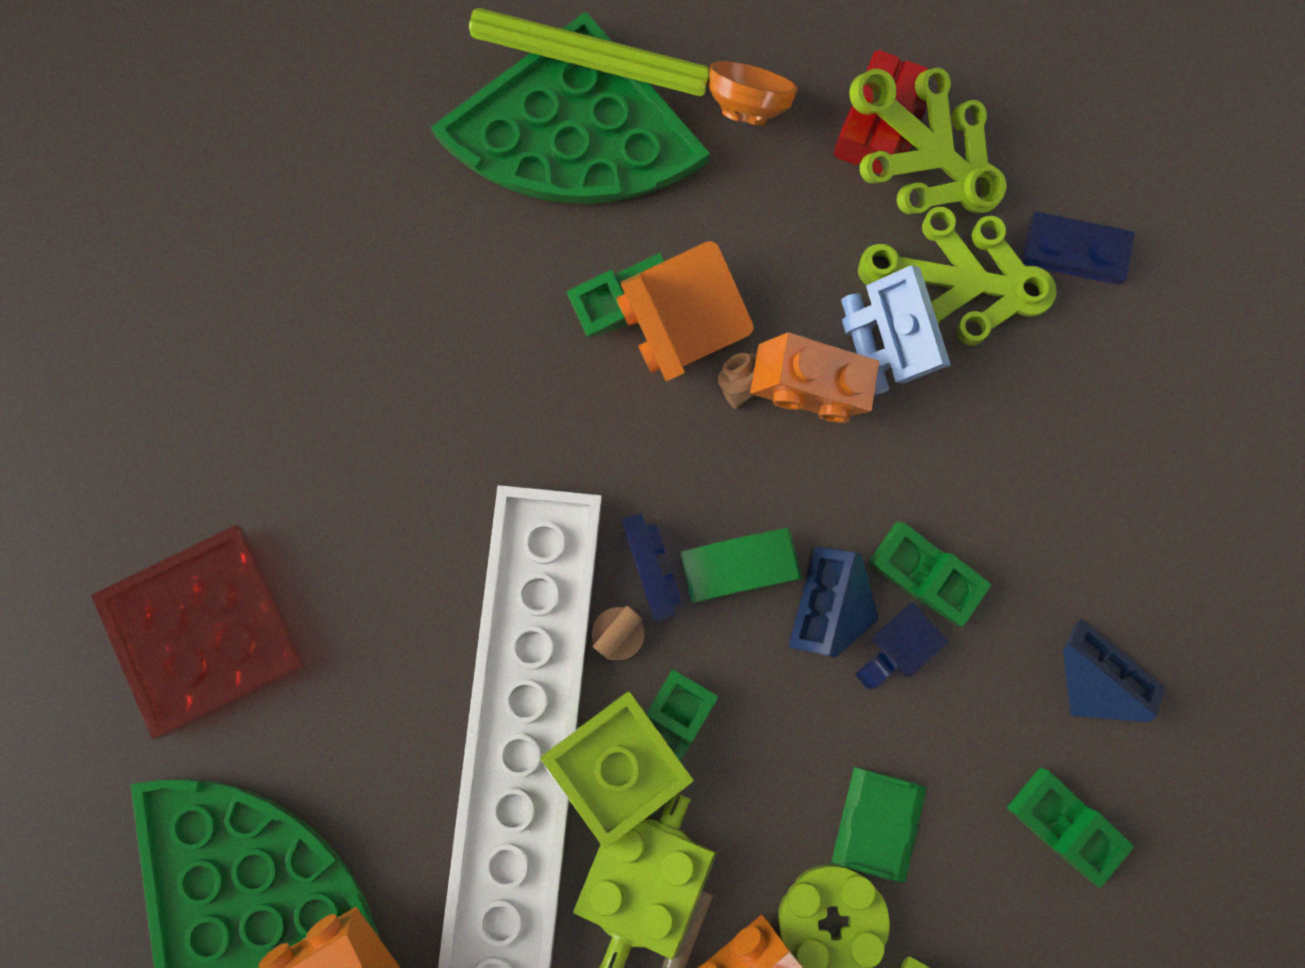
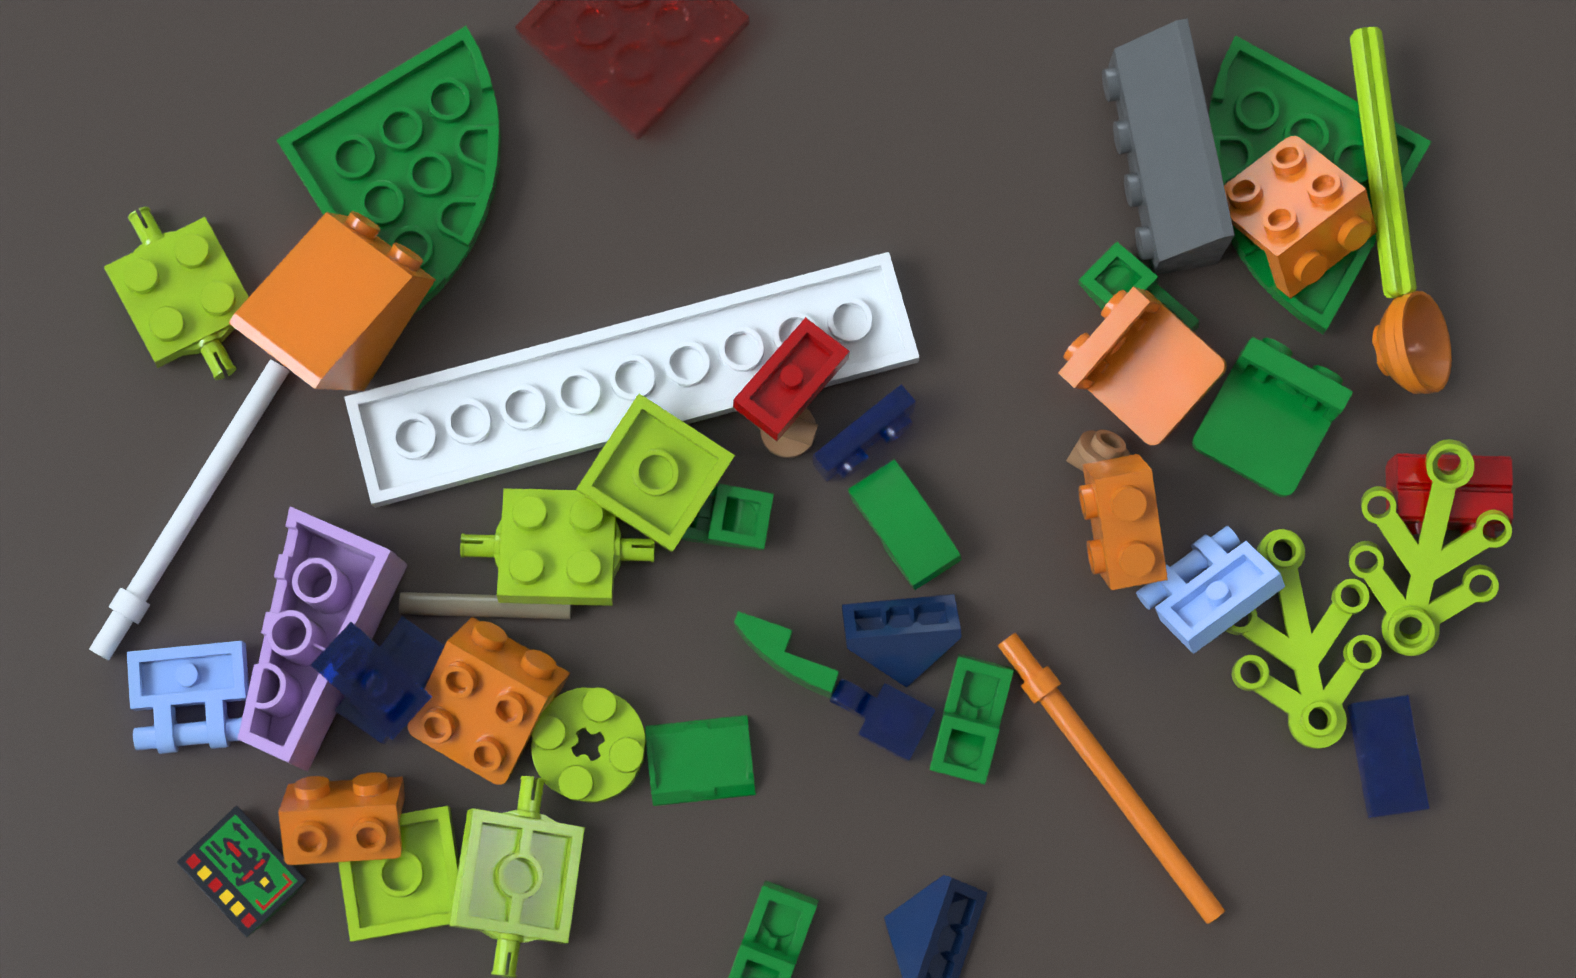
camera: 65 degrees right, 0 degrees up
(506, 213) = (1168, 150): none -> dark grey slope
(580, 614) = (791, 379): none -> red plate
(603, 132) = (1299, 212): none -> orange bracket
(764, 225) = (1270, 416): none -> green bracket
(807, 722) = (771, 645): none -> green slope
(924, 503) = (1042, 686): none -> orange bar

